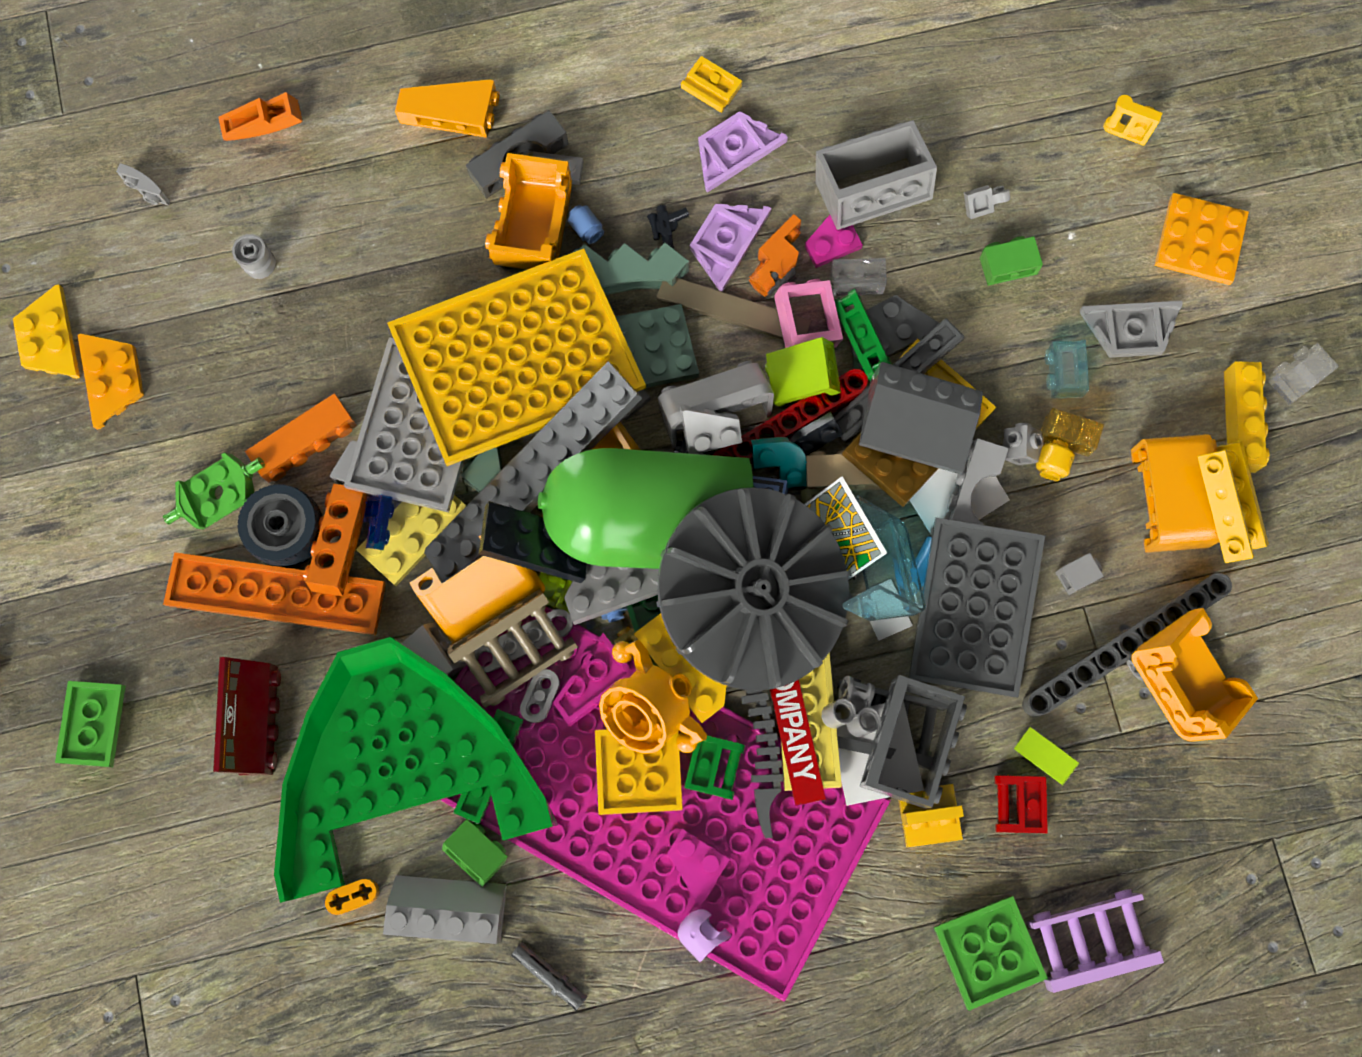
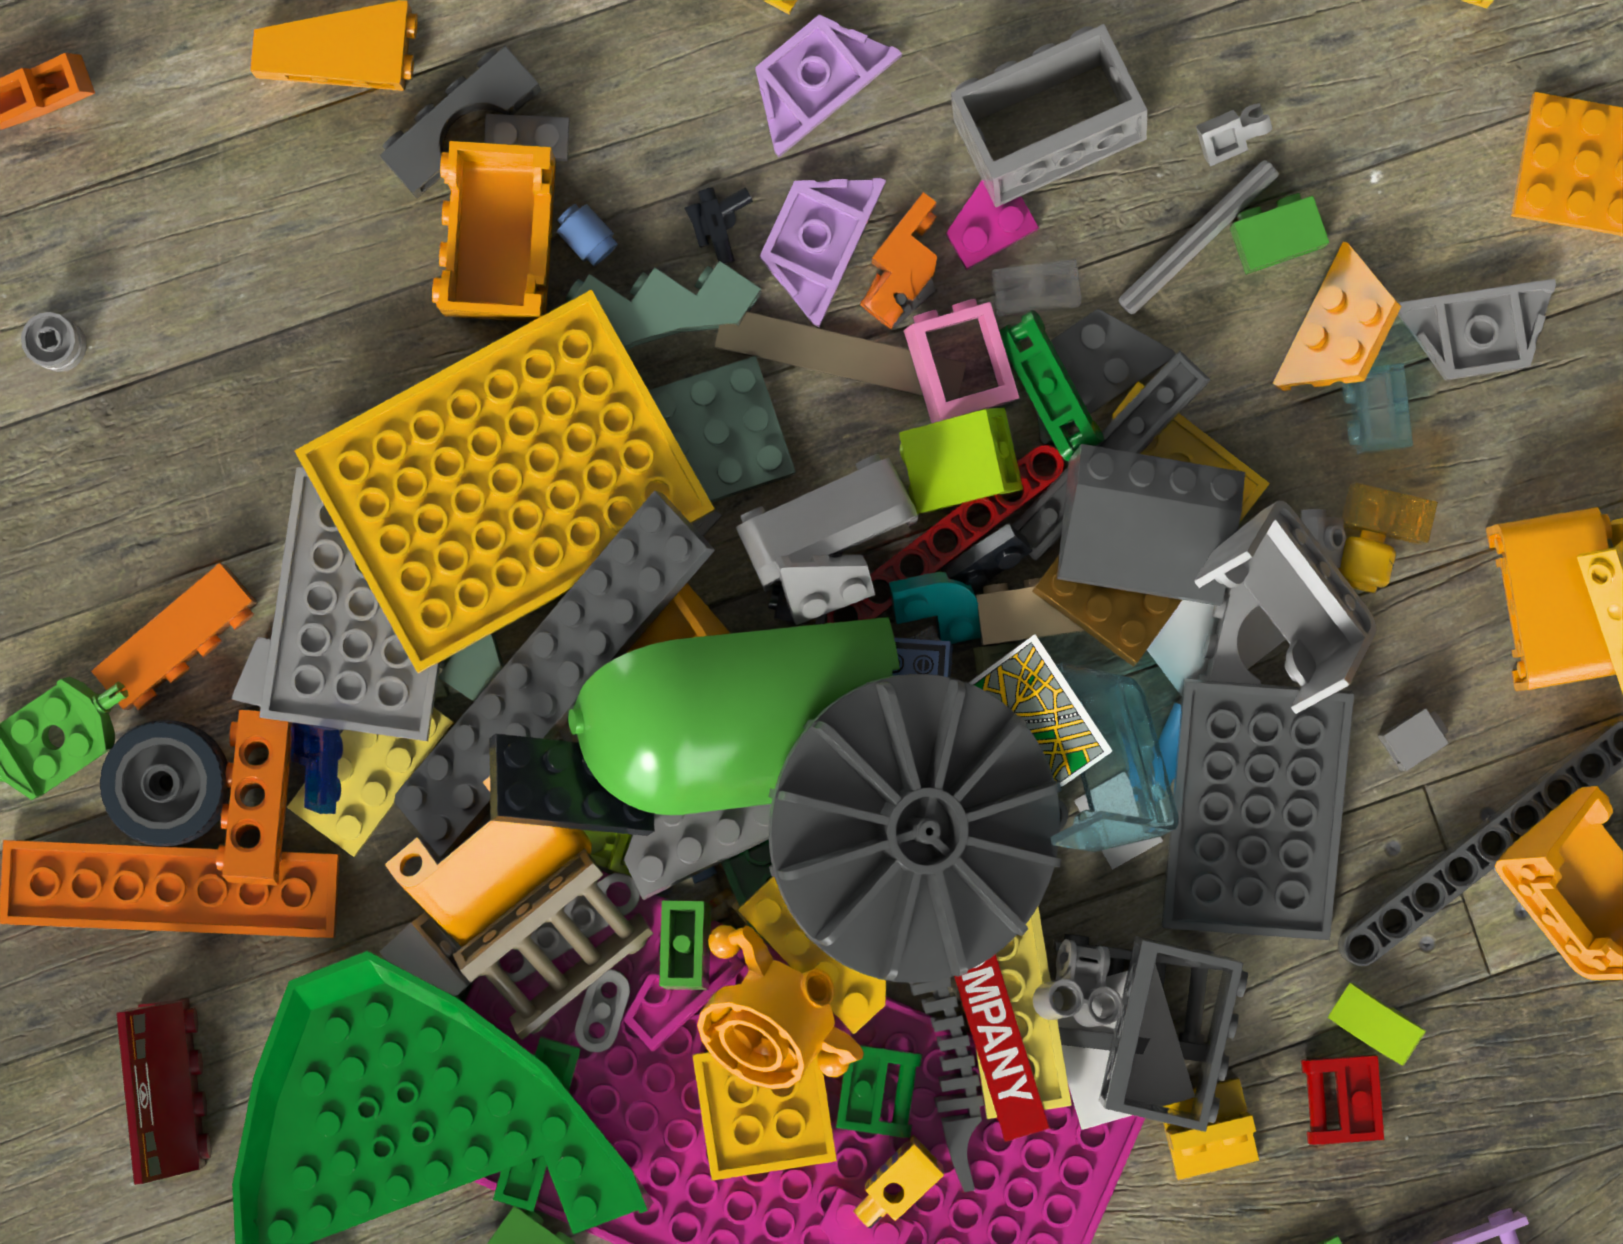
camera: 10 degrees left, 10 degrees up
(596, 655) = (685, 945): none -> bright green brick
(734, 821) = (911, 1168): none -> yellow torso
(959, 260) = (1198, 237): none -> light grey axle
(1013, 469) = (1301, 595): none -> light grey windscreen
(1047, 317) = (1341, 327): none -> light orange wing

